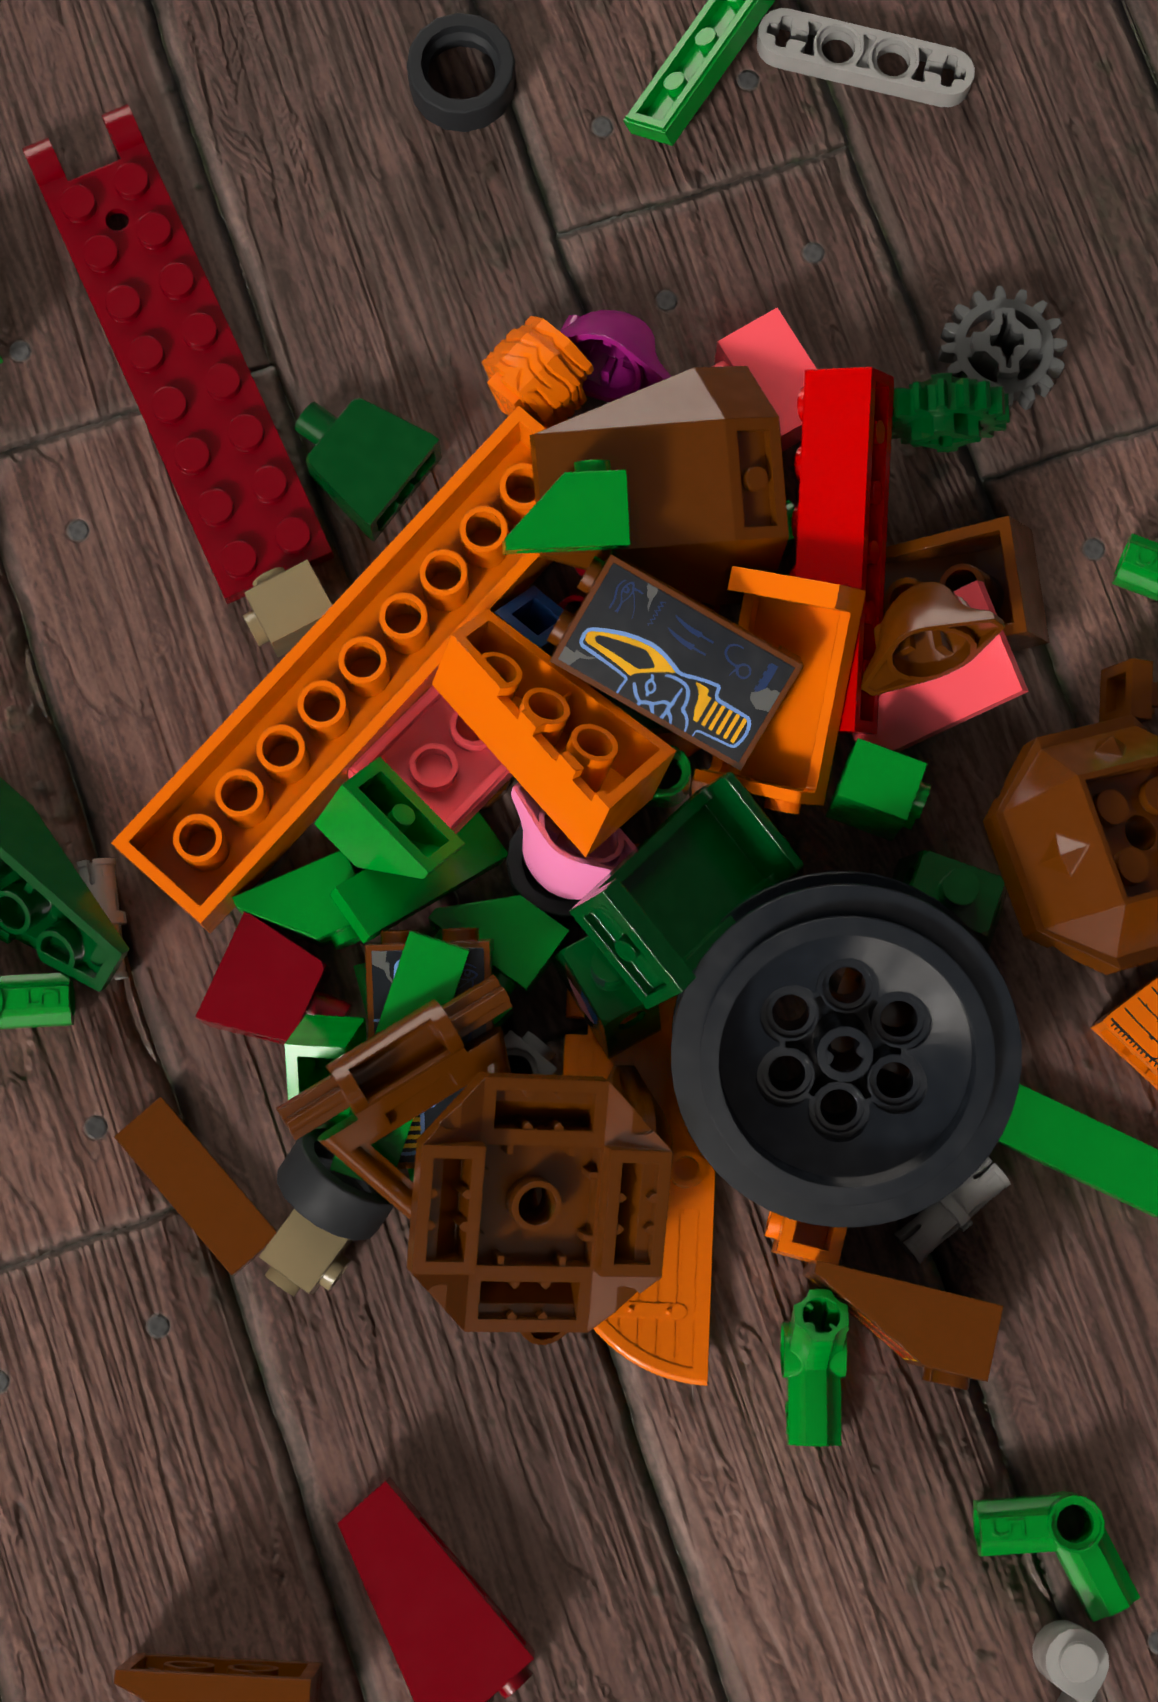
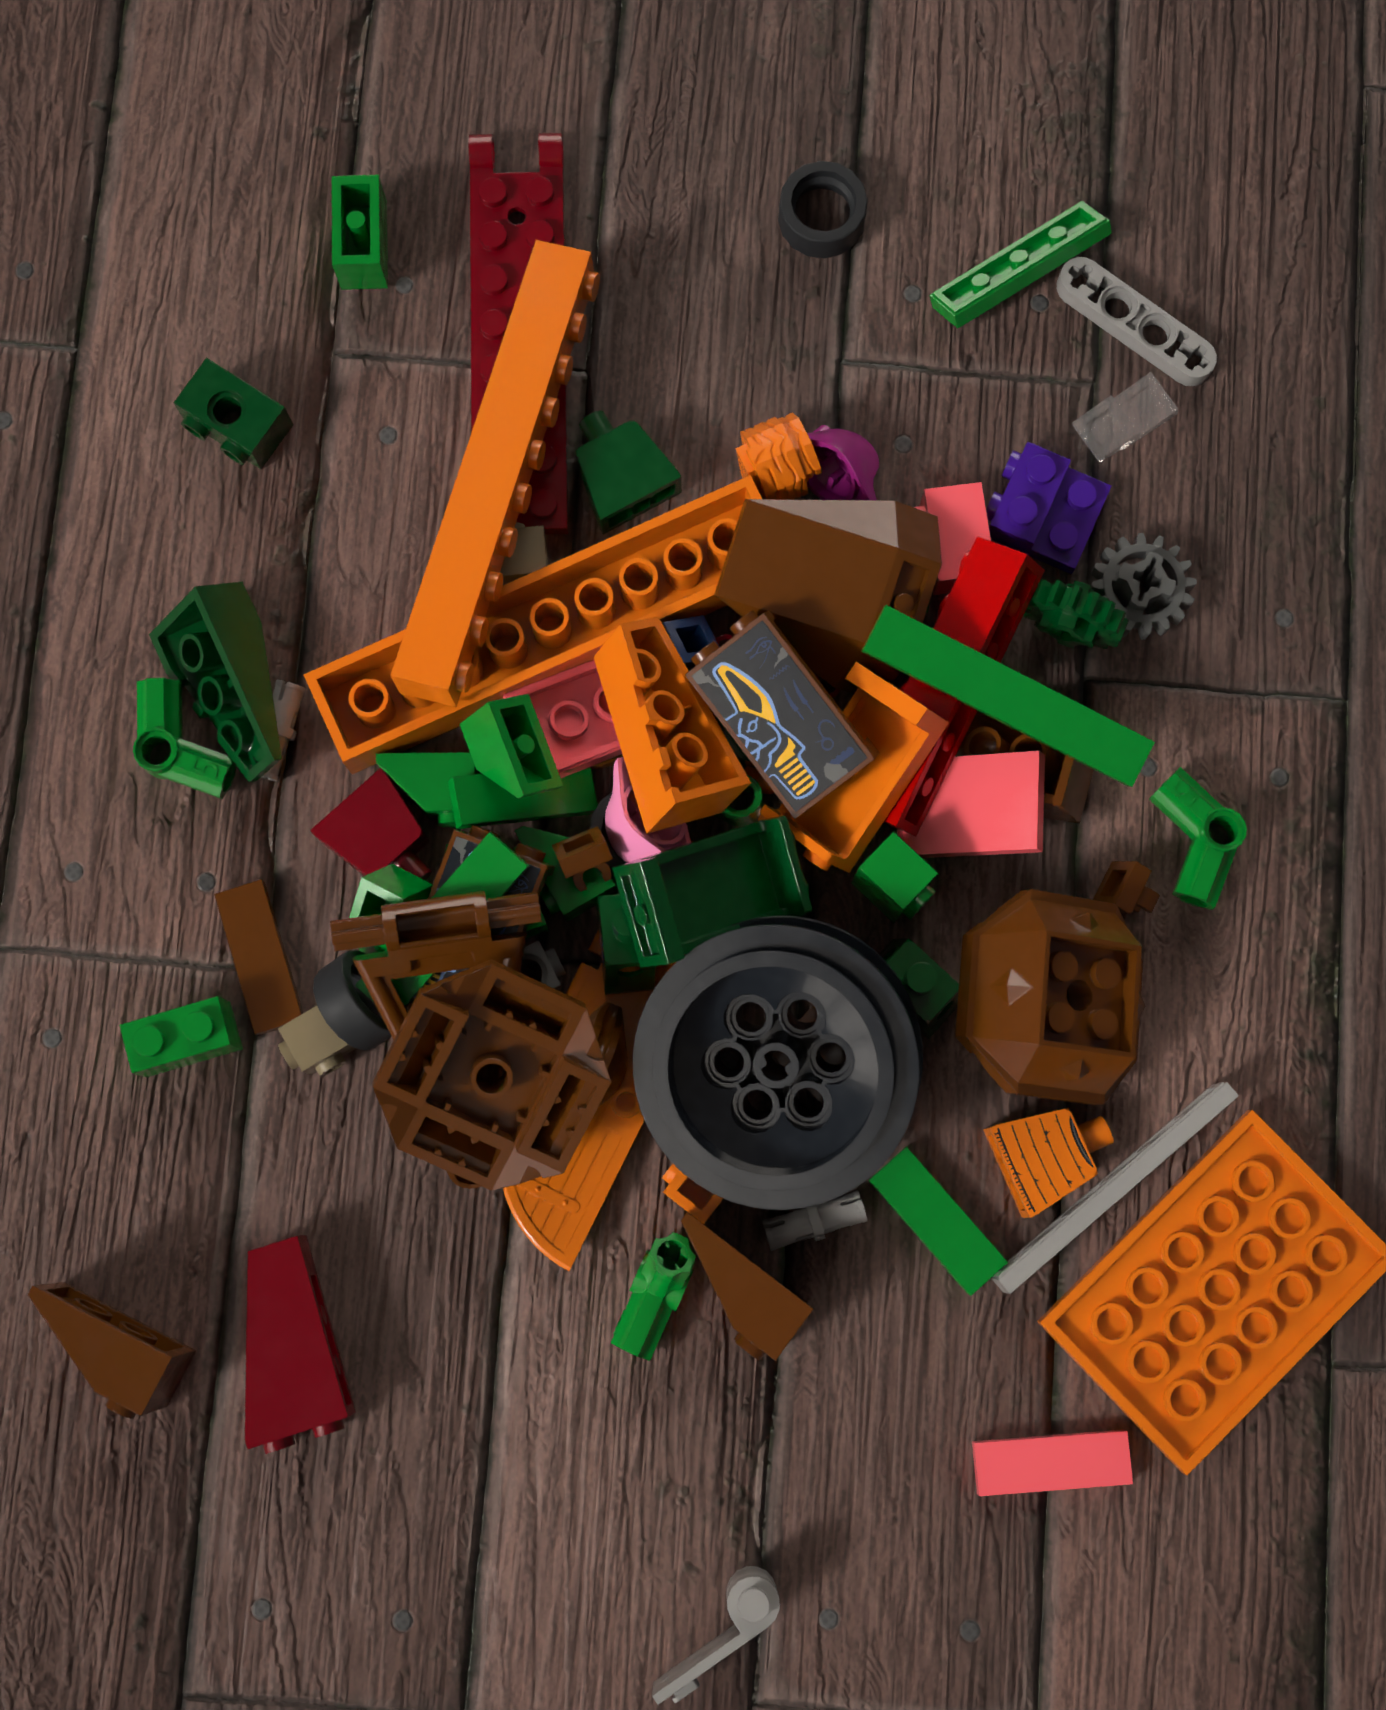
camera: 25 degrees right, 0 degrees up
(149, 1315) = (181, 1037): none -> green brick
(232, 524) = (496, 475): none -> orange brick
(520, 910) = (582, 853): none -> reddish brown tile
(576, 514) = (750, 571): green slope -> none
(858, 306) = (1046, 507): none -> dark purple plate
(900, 169) = (1125, 418): none -> clear slope
(917, 534) = (1008, 696): none -> green tile
(926, 637) = (980, 778): reddish brown hat -> none
(1088, 1559) = (799, 1531): green piece -> none

